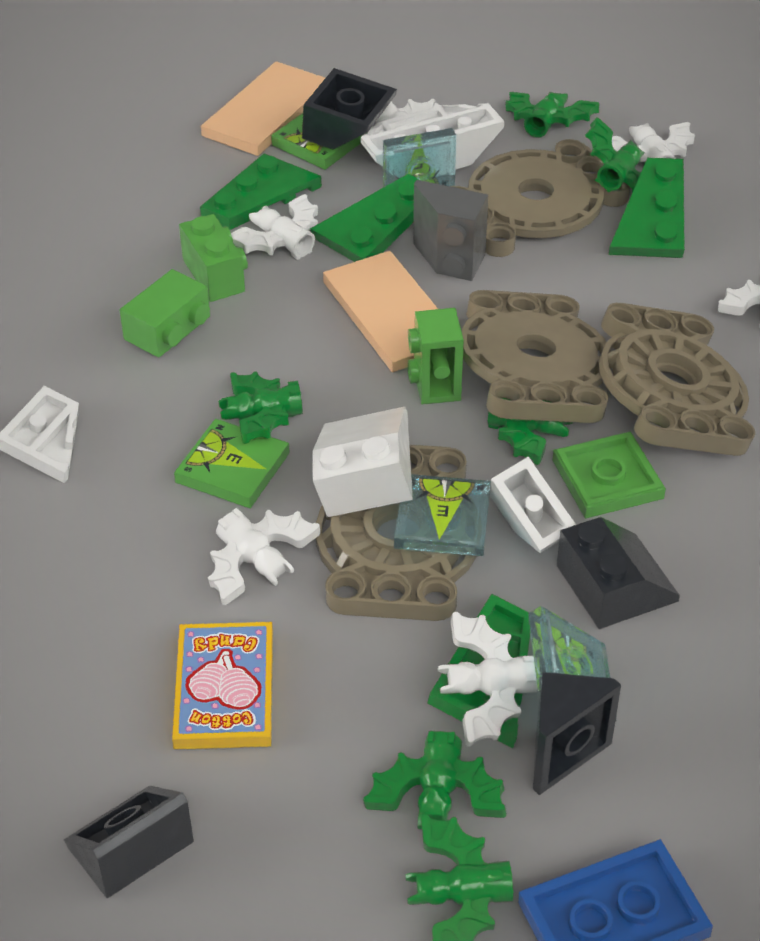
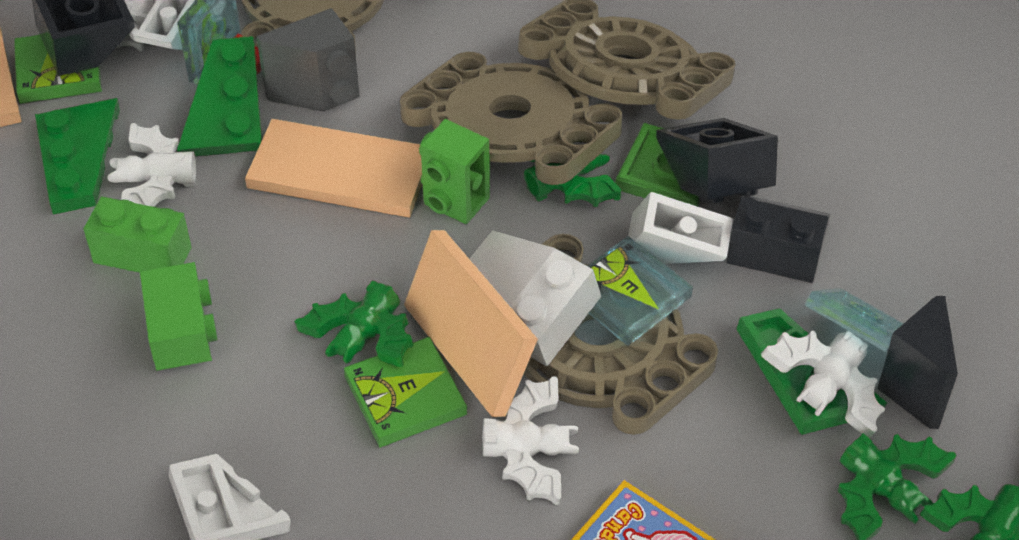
camera: 50 degrees left, 5 degrees up
(301, 444) = (470, 323): none -> light nougat tile
(634, 487) = (720, 158): none -> black slope

